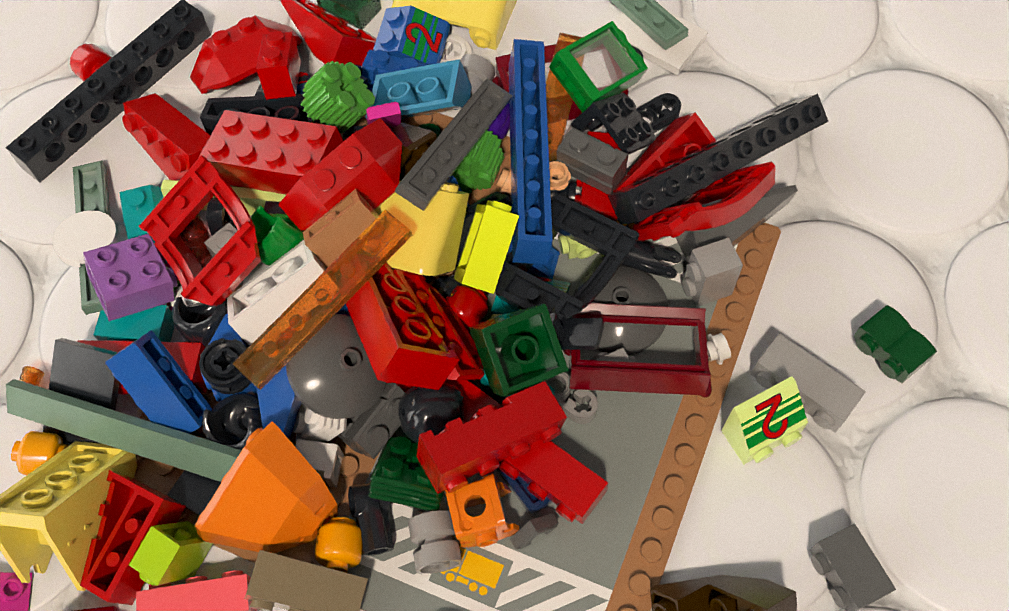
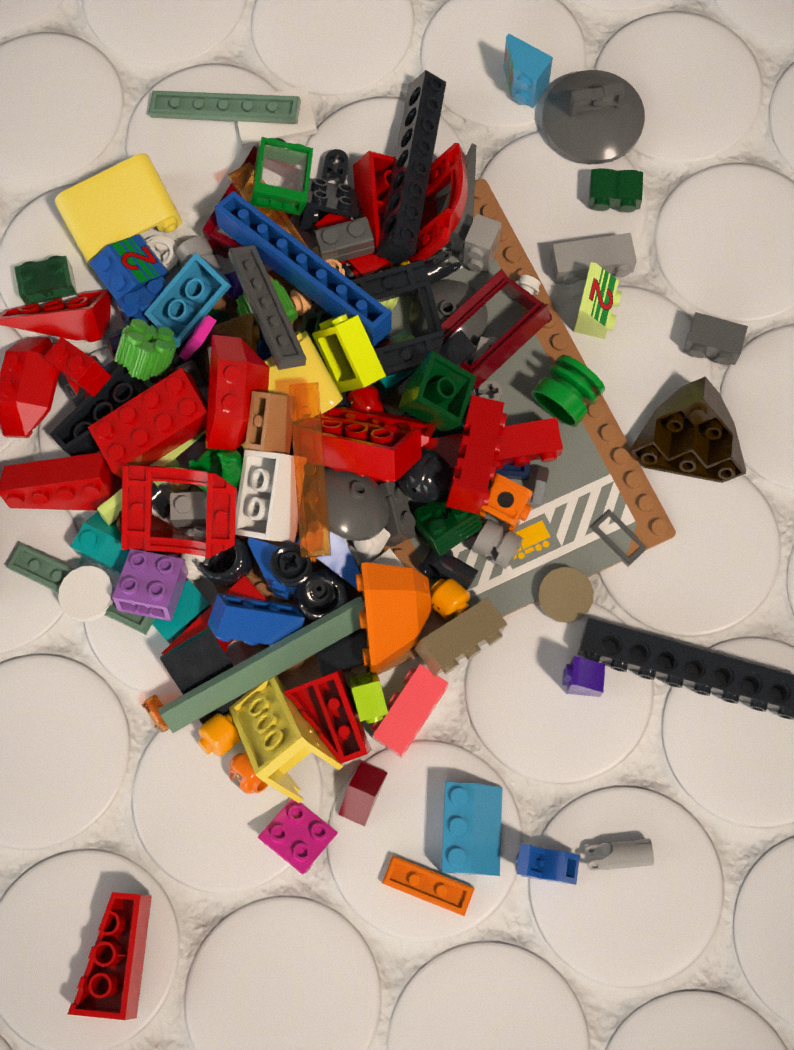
camera: 45 degrees left, 10 degrees up
(649, 471) = (568, 390): none -> green wheel
(914, 174) = (526, 70): none -> dark azure slope
(940, 266) = (593, 117): none -> dark grey bracket

